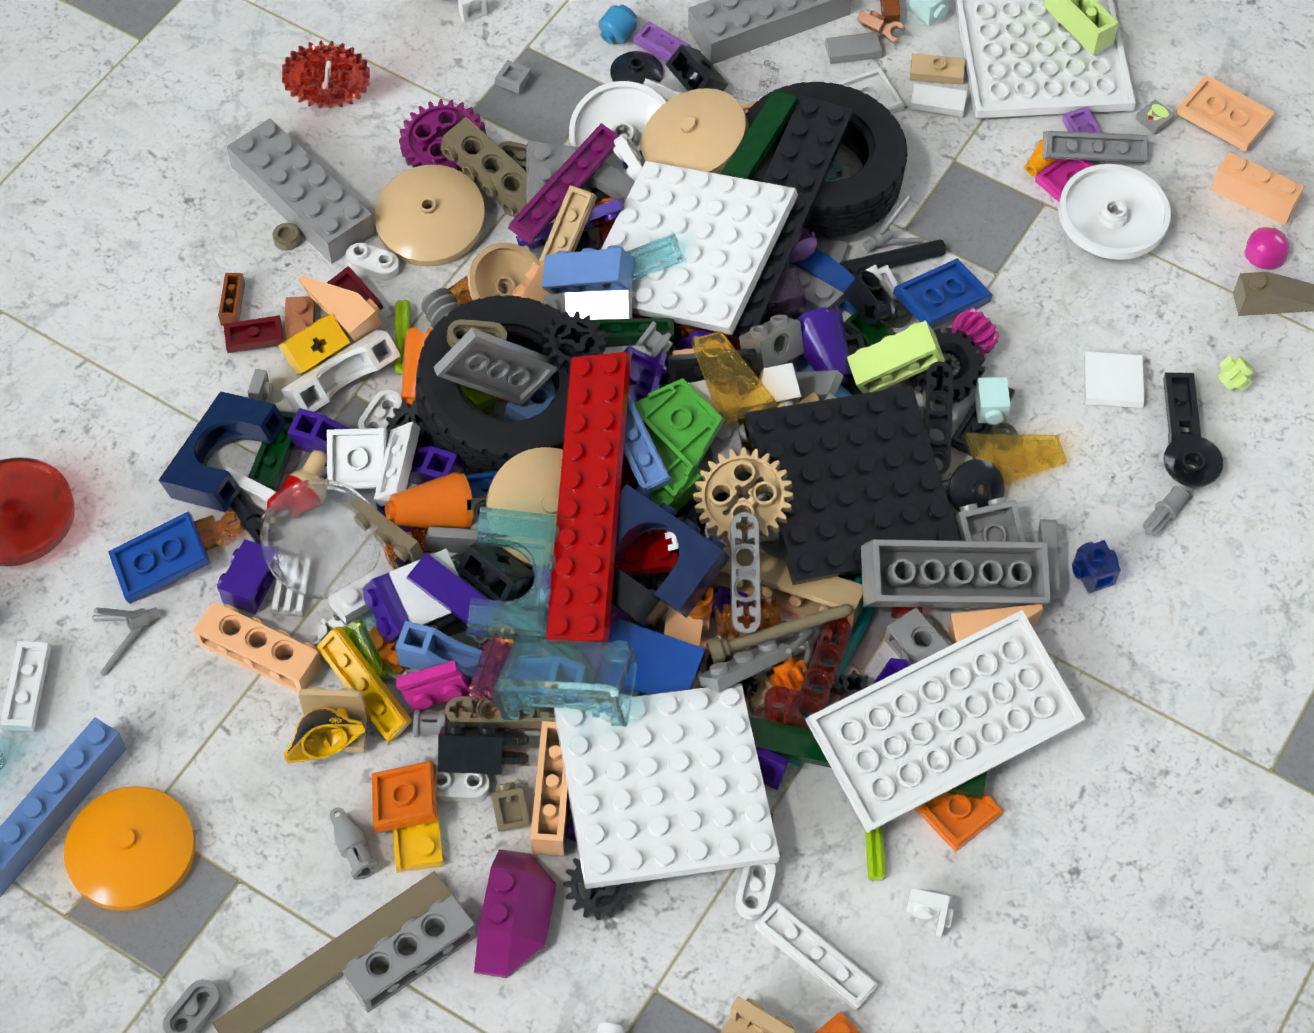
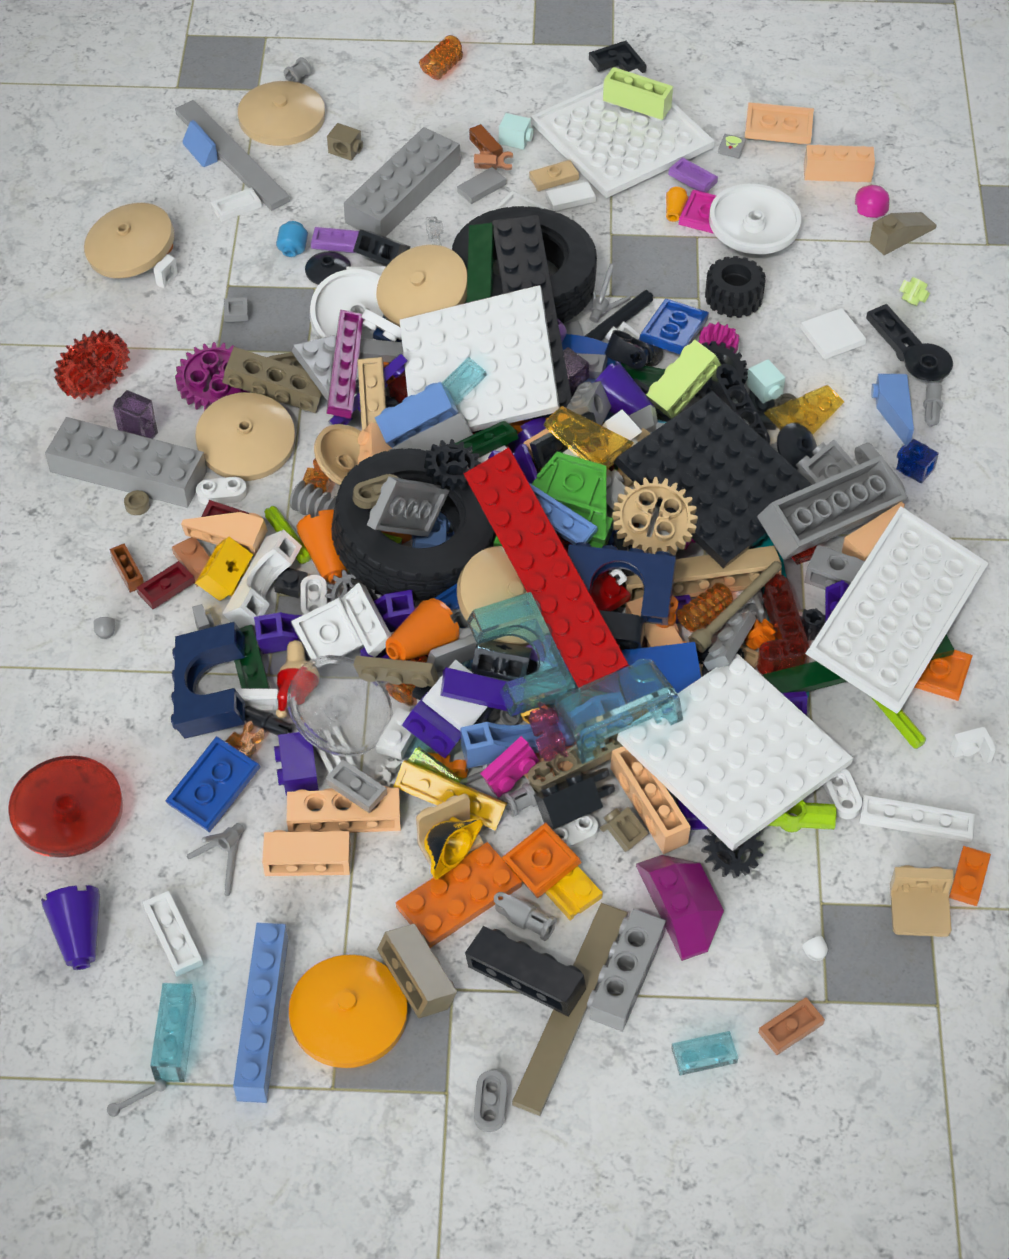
camera: 30 degrees left, 5 degrees down
(170, 350) = (104, 627): none -> light grey hinge
(196, 671) = (306, 853): none -> light nougat brick
(212, 844) = (416, 970): none -> brick
(274, 629) = (356, 786): none -> light grey plate
(308, 789) = (459, 895): none -> orange plate
(310, 900) = (526, 970): none -> black brick
(334, 149) = (135, 415): none -> clear purple brick
(370, 385) = (290, 582): none -> black plate
(655, 340) = (507, 439): light grey wheel -> none
(702, 894) = (808, 816): none -> lime piece
(749, 573) = (697, 568): light grey beam -> none
(1039, 261) = (735, 286): none -> black tyre
(1095, 147) = (709, 181): light grey tile -> none
(1121, 488) = (894, 403): none -> medium blue slope

